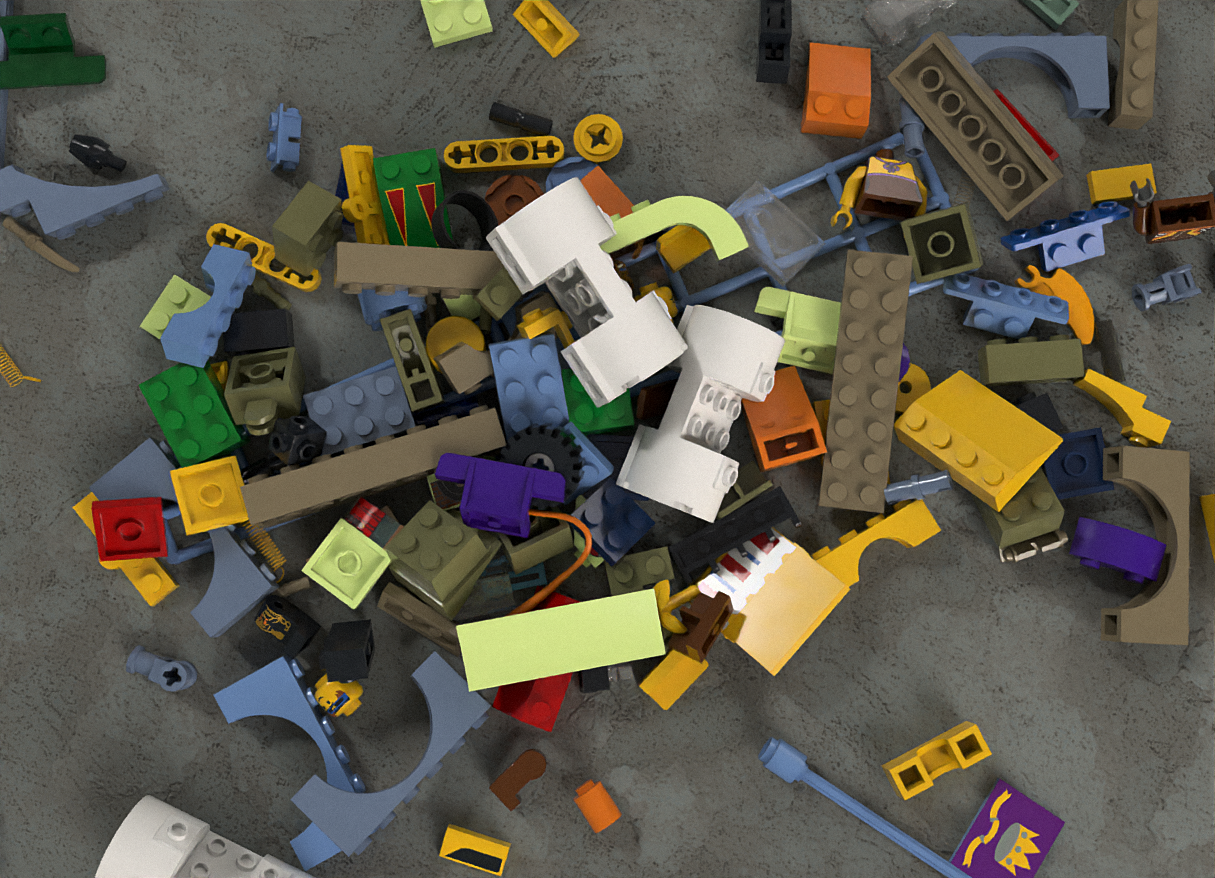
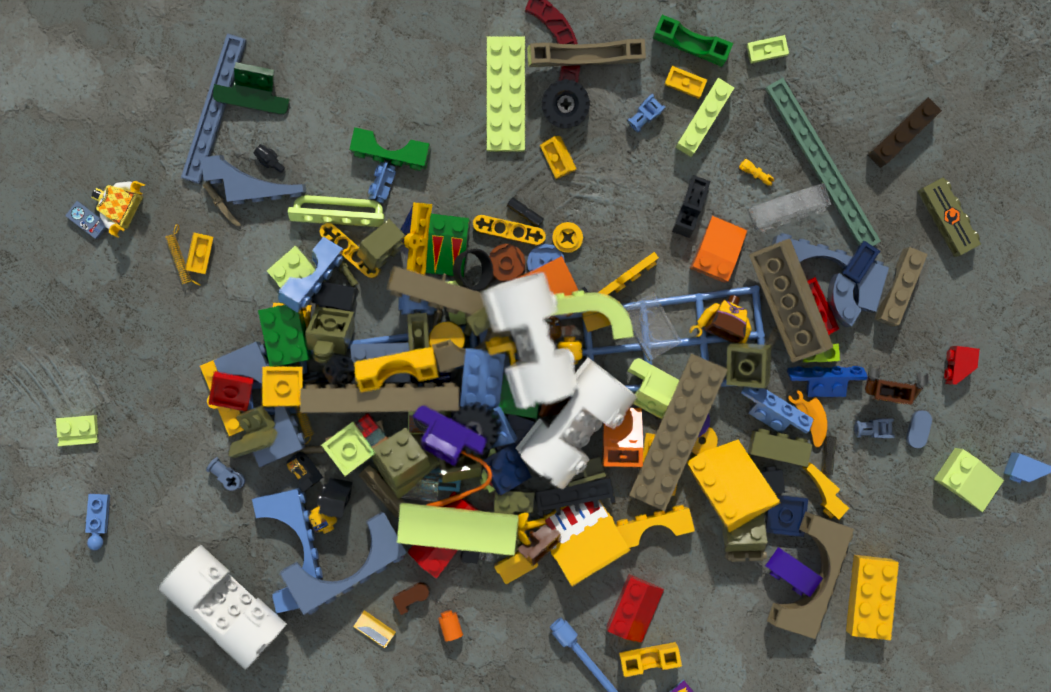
camera: 20 degrees right, 5 degrees up
(24, 330) = (199, 253): none -> yellow plate
(163, 222) = (300, 214): none -> yellowish green piece
(194, 577) = (259, 432): none -> olive plate
(320, 82) = (413, 154): none -> green arch
(352, 423) = (373, 372): none -> yellow arch
(717, 160) = (632, 274): none -> yellow hinge
(884, 687) = (634, 609): none -> red slope
(911, 128) = (754, 291): sand blue pin -> none
(918, 487) = (689, 502): sand blue pin -> none
(1051, 108) = (841, 300): none -> sand blue brick
(1057, 197) = (827, 356): none -> lime leg
(1061, 39) = (861, 262): none -> dark blue tile
(1115, 183) = (866, 355): yellow tile -> none

